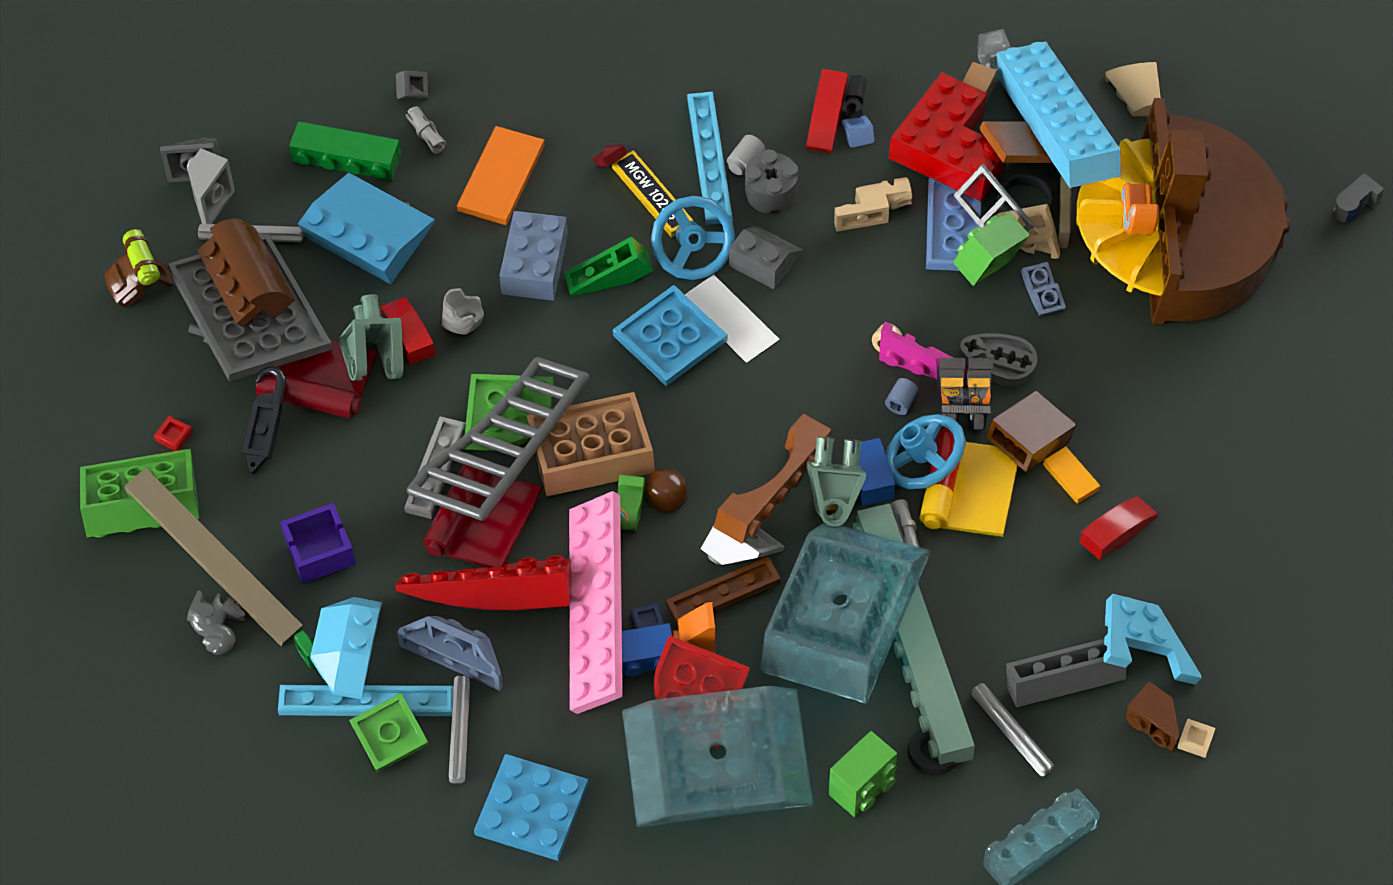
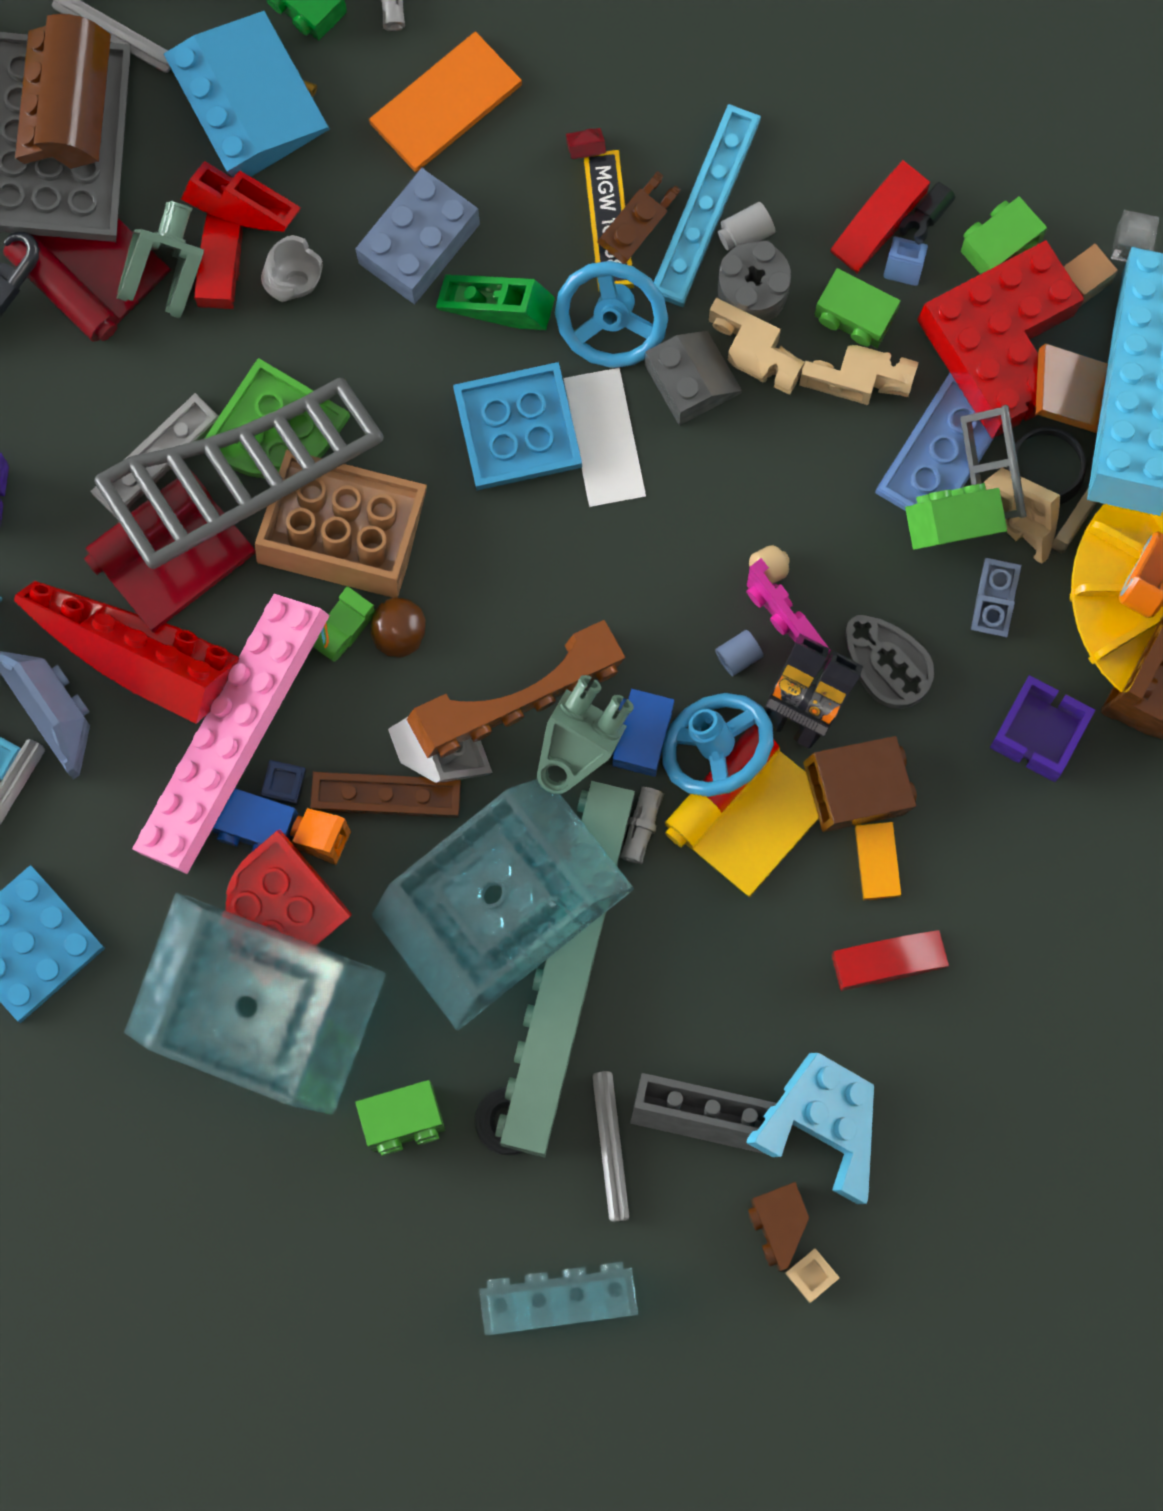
camera: 30 degrees right, 20 degrees up
(402, 287) = (239, 199): none -> red slope
(671, 180) = (636, 220): none -> reddish brown hinge
(795, 217) = (755, 345): none -> tan plate
(846, 167) = (856, 309): none -> bright green brick
(910, 86) = (1003, 236): none -> bright green brick
(1125, 350) = (1041, 731): none -> dark purple piece

